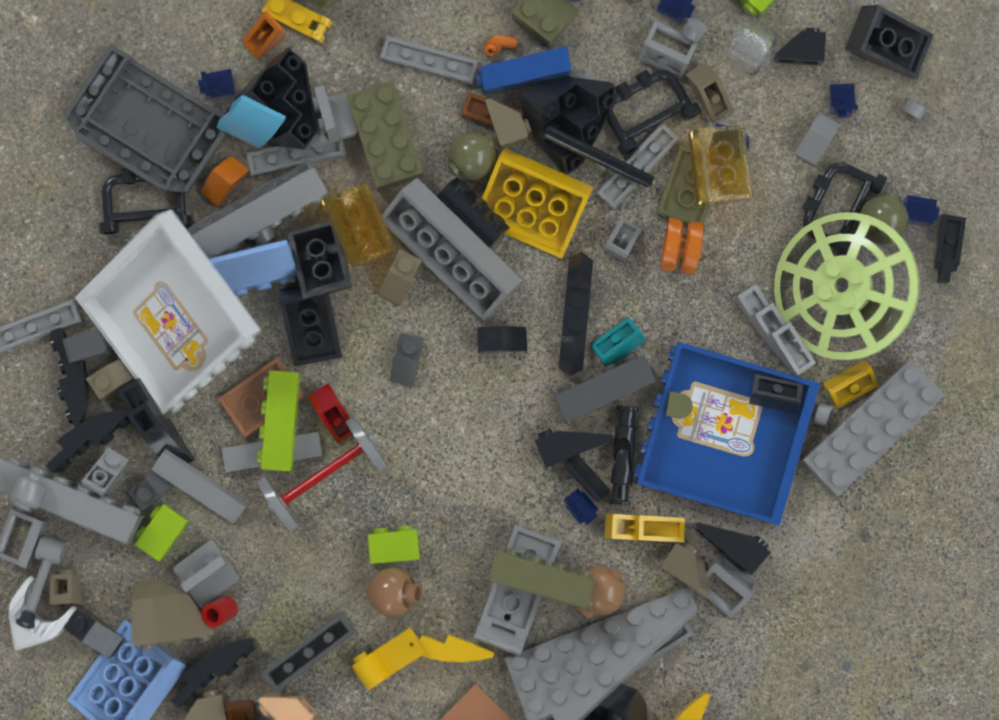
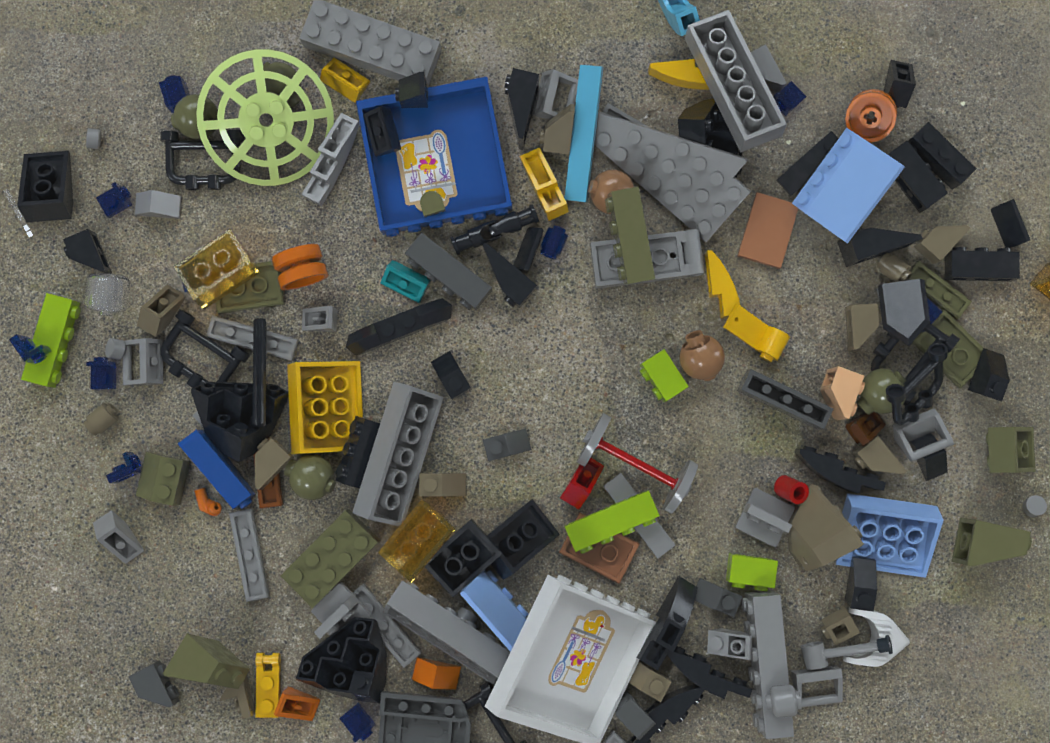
camera: 115 degrees left, 0 degrees up
(199, 486) = (698, 560): light grey tile -> none
(251, 121) = (375, 677): medium azure slope -> none
(673, 591) = (583, 133): none -> medium azure tile
(797, 442) = (412, 91): none -> black slope
(823, 415) = (380, 88): light grey piece -> none
(948, 246) = (193, 56): black hinge -> none

